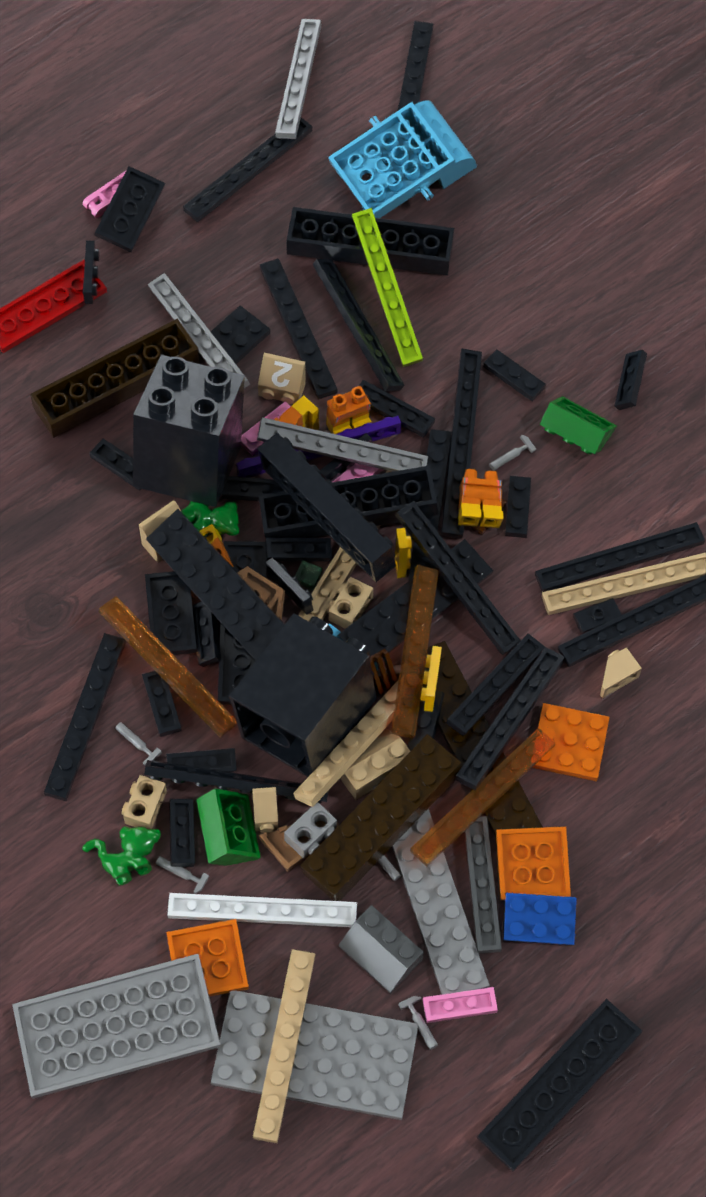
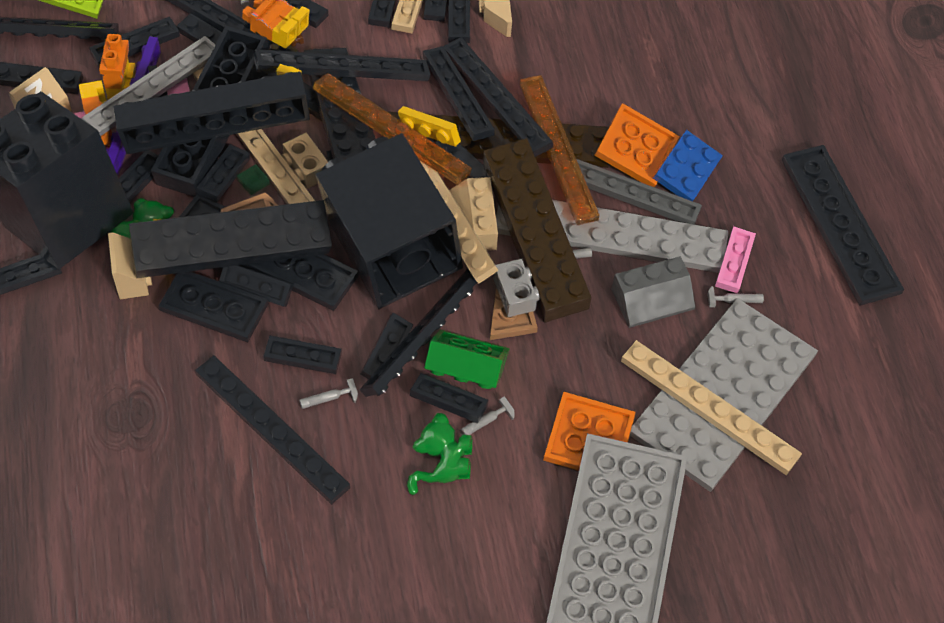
camera: 65 degrees left, 5 degrees down
(150, 804) = (405, 412): tan brick -> none
(168, 666) = (270, 328): clear orange plate -> none
(262, 910) = (562, 370): white plate -> none
(265, 809) = (471, 316): tan slope -> none
(291, 585) = (277, 189): black plate -> none
(577, 740) = (538, 59): orange plate -> none

